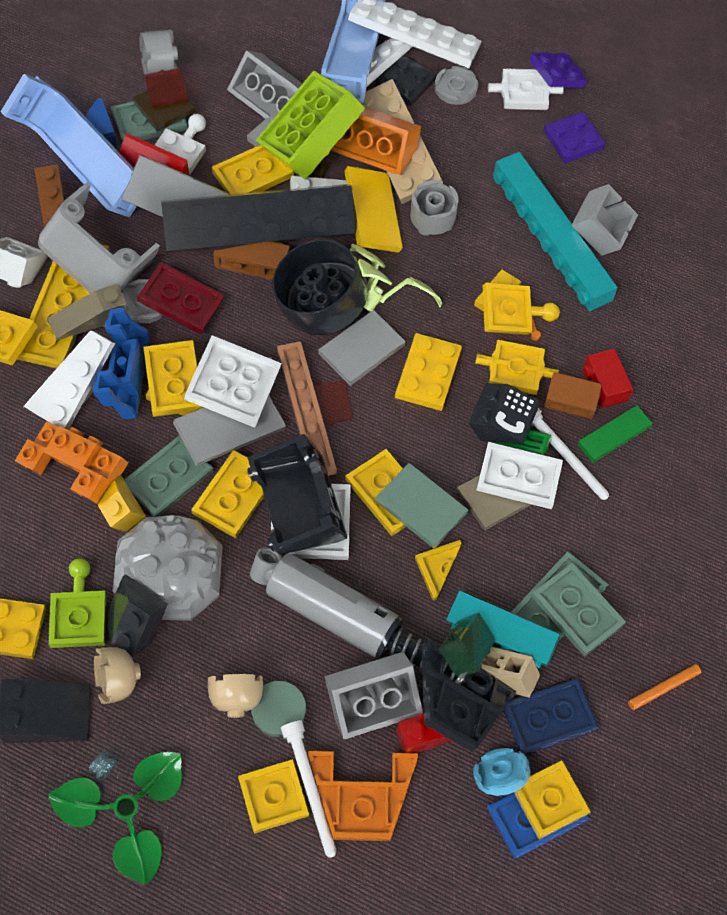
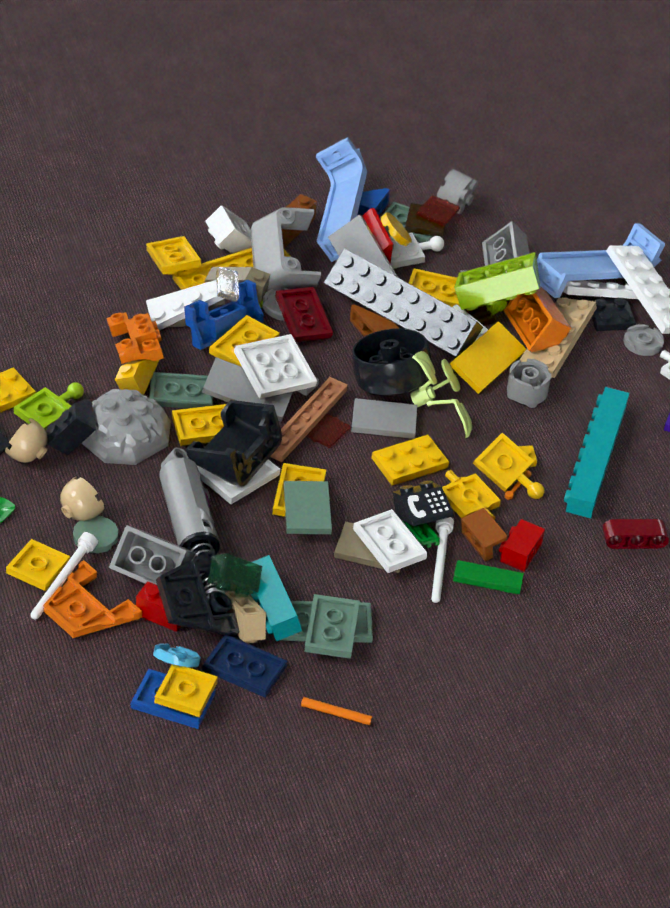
camera: 45 degrees right, 20 degrees down
(105, 333) = (227, 284): none -> clear tile
(162, 138) = (396, 229): none -> yellow tile
(436, 566) = (282, 547): yellow tile -> none
(604, 227) = (632, 465): light grey piece -> none
(666, 287) = (635, 534): none -> dark red beam

